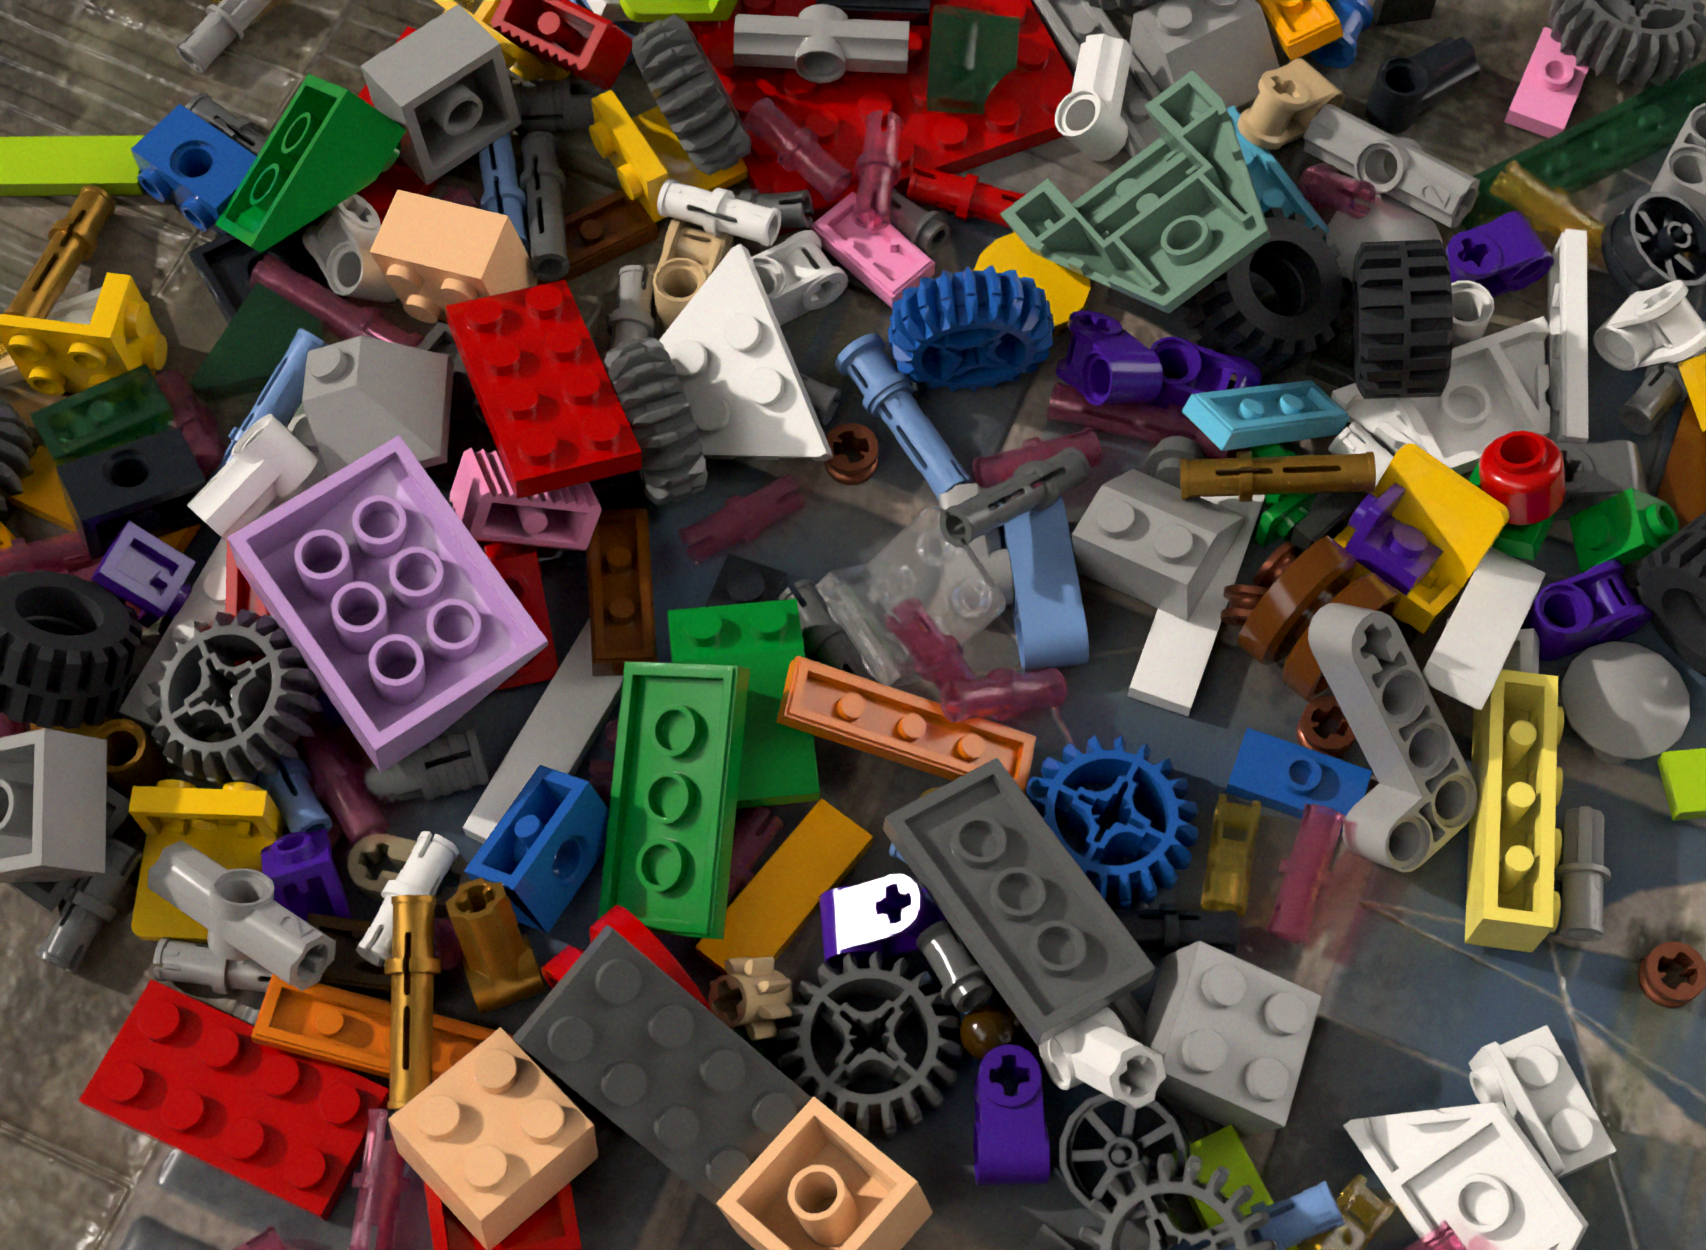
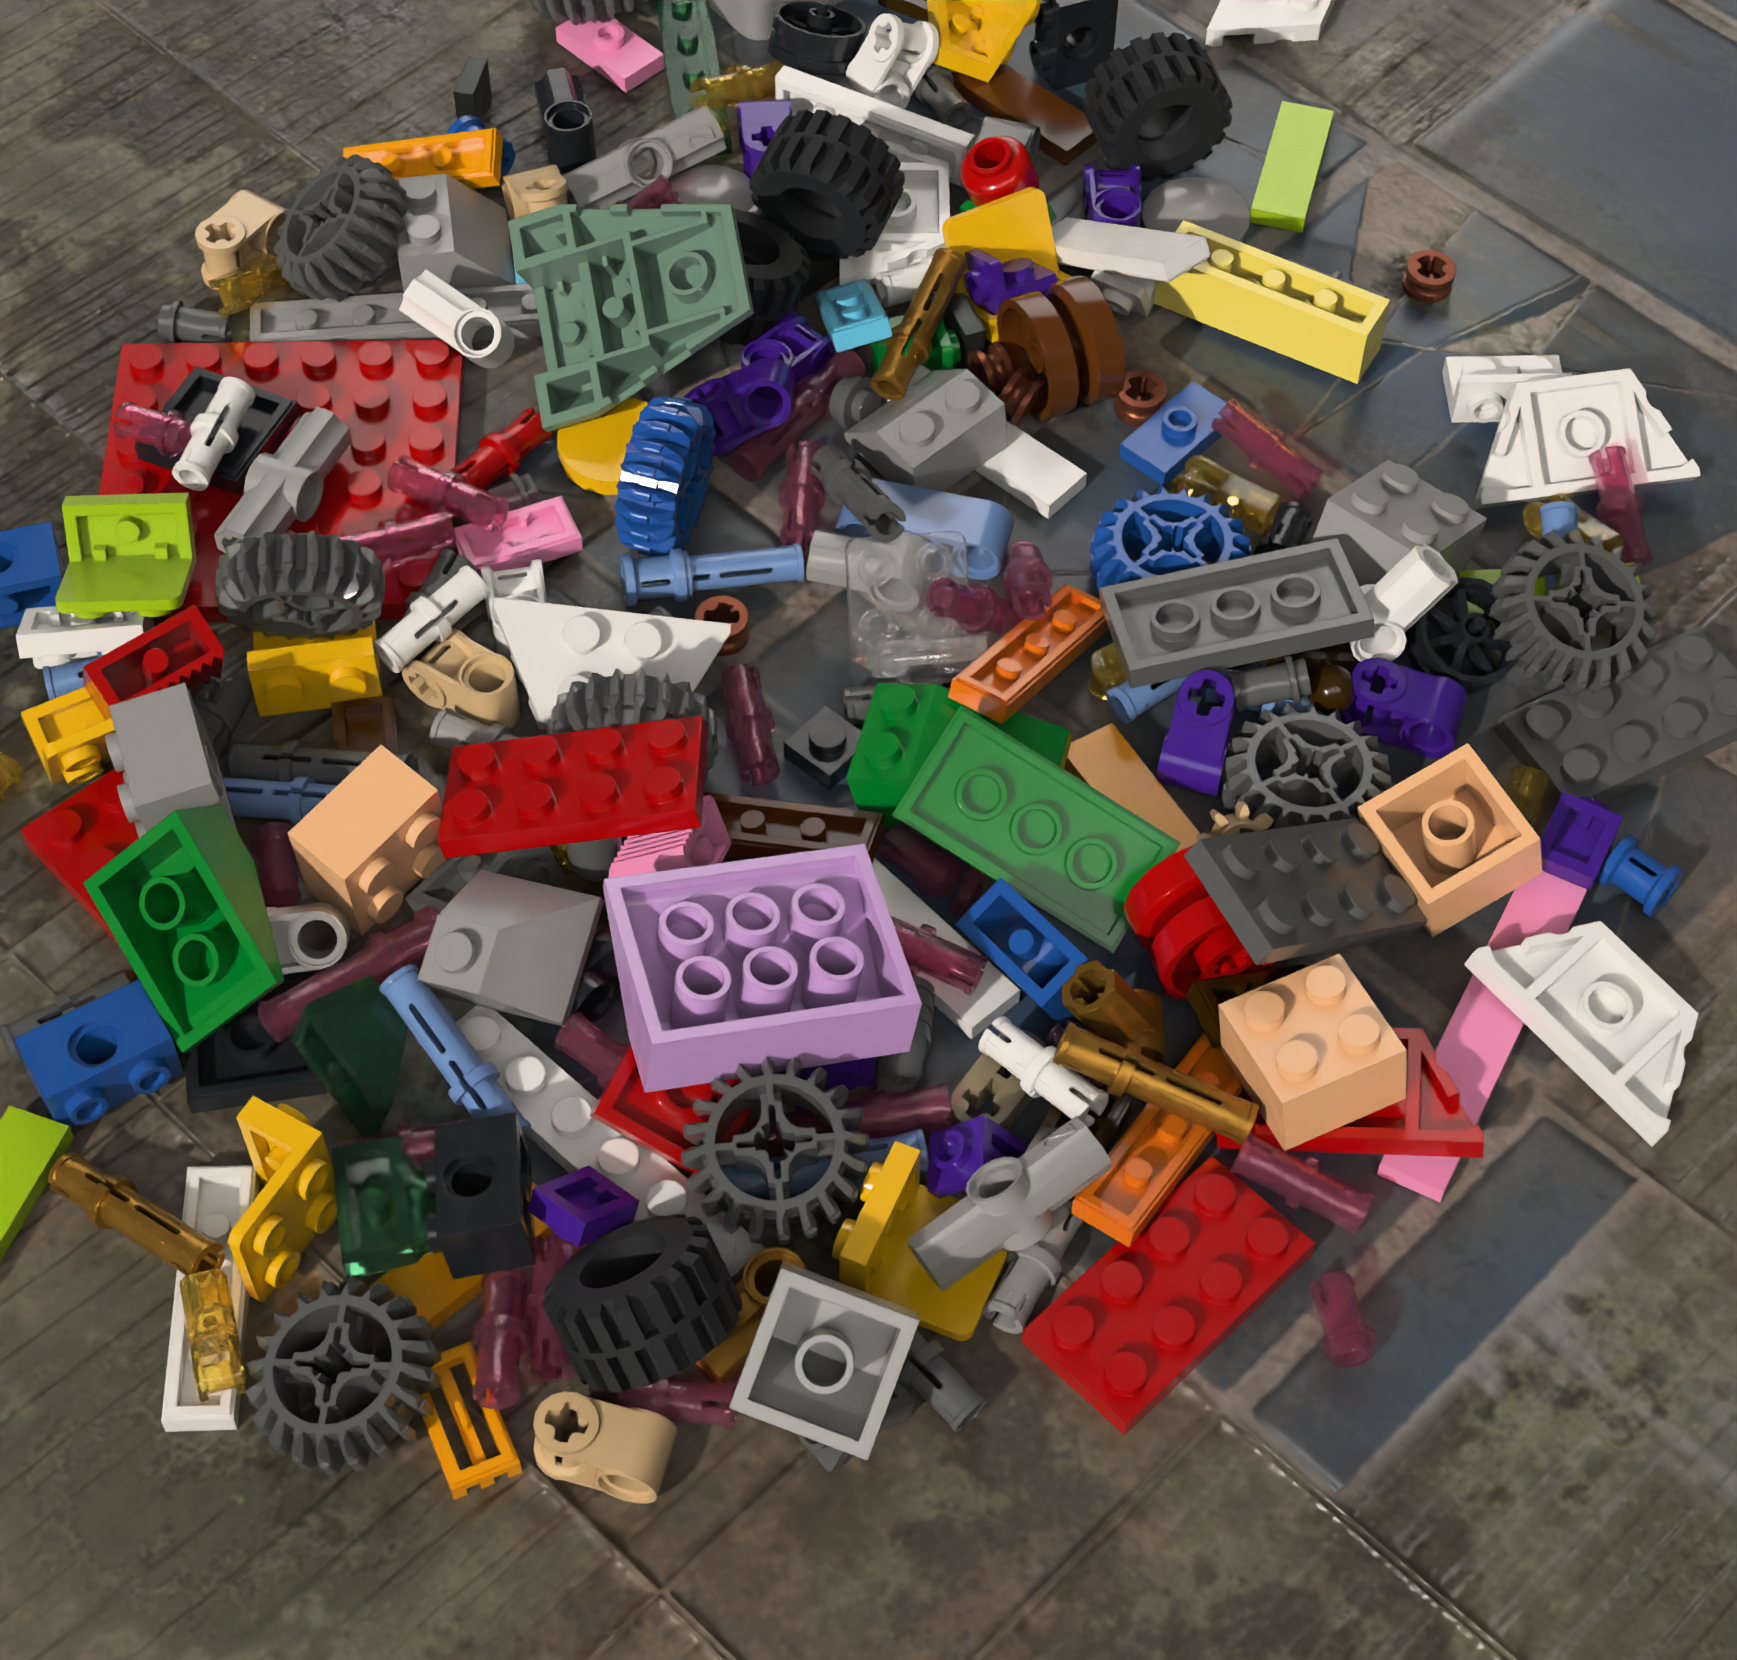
camera: 70 degrees left, 10 degrees down
(264, 466) = (526, 1061): white piece -> none
(515, 743) = (939, 957): none -> clear pink pin
(968, 57) = (366, 387): clear green slope -> none
(1421, 775) = (1196, 330): light grey beam -> none
(1622, 528) = (1060, 155): green bracket -> none

